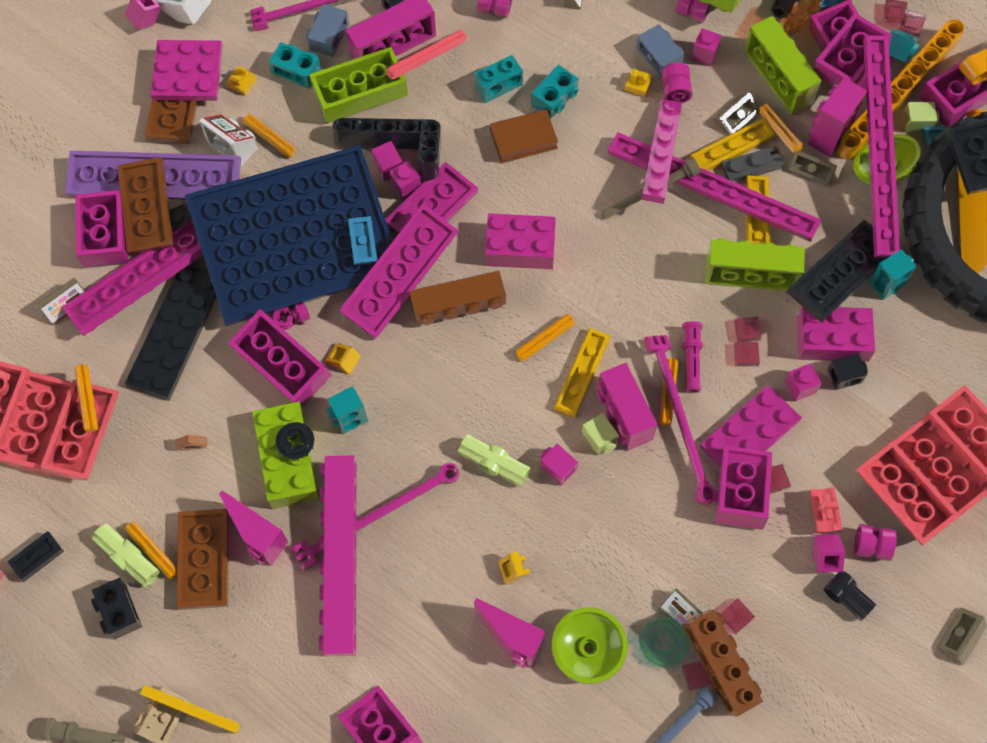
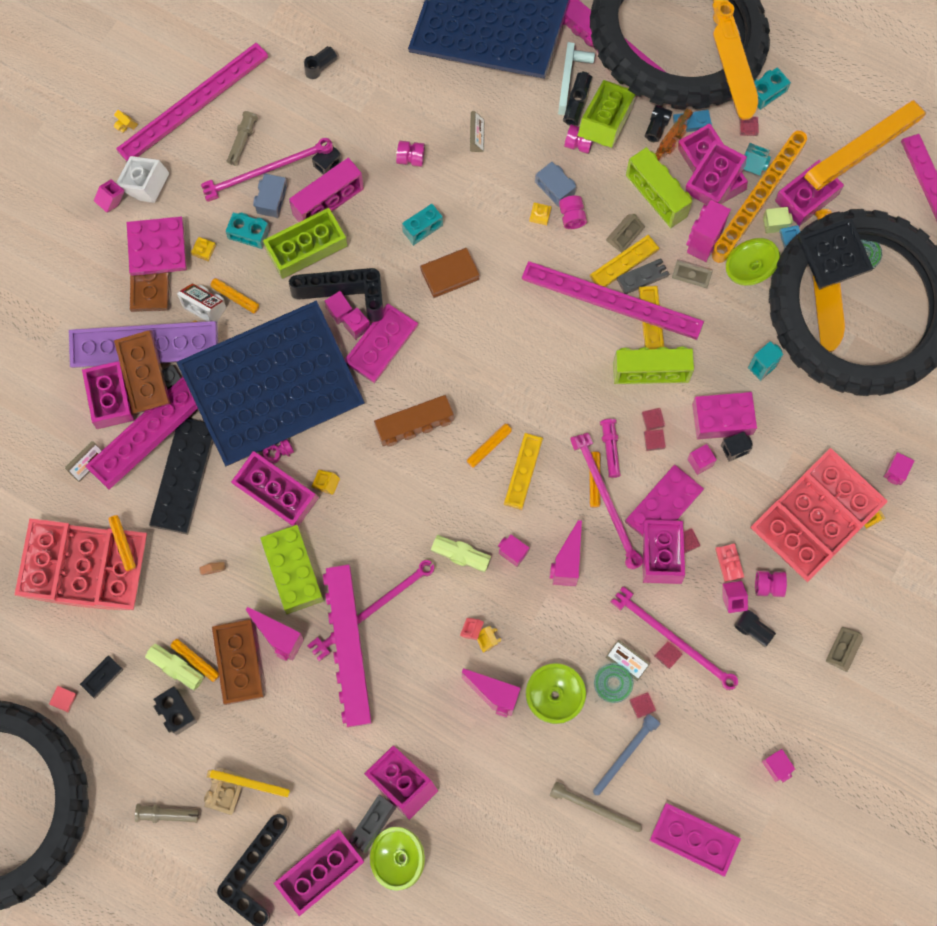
camera: 10 degrees left, 5 degrees up
(291, 431) = (295, 551): black gear -> none
(346, 410) = (336, 527): teal brick -> none
(362, 240) = (329, 382): dark azure plate -> none
(398, 271) = (362, 404): dark pink plate -> none
(426, 54) = (359, 210): coral axle -> none
(495, 552) = (471, 628): none -> coral tile
(520, 241) = (459, 366): dark pink brick -> none
(551, 89) = (468, 229): teal brick -> none
(600, 434) = (544, 522): yellowish green brick -> none
(620, 492) = (566, 566): none -> dark pink slope
(626, 407) = (562, 497): dark pink brick -> none
(661, 151) = (567, 275): dark pink plate -> none
(689, 169) = (591, 288): dark tan piece -> none
(706, 47) = (593, 176): dark pink brick -> none
(722, 662) = (661, 694): dark orange brick -> none
(780, 128) = (662, 242): light orange axle -> none
(790, 638) = (625, 601): none -> dark pink hinge
(837, 273) = (725, 362): black plate -> none
(881, 146) = (746, 254): dark pink plate -> none
(912, 22) = (763, 136): clear pink tile -> none

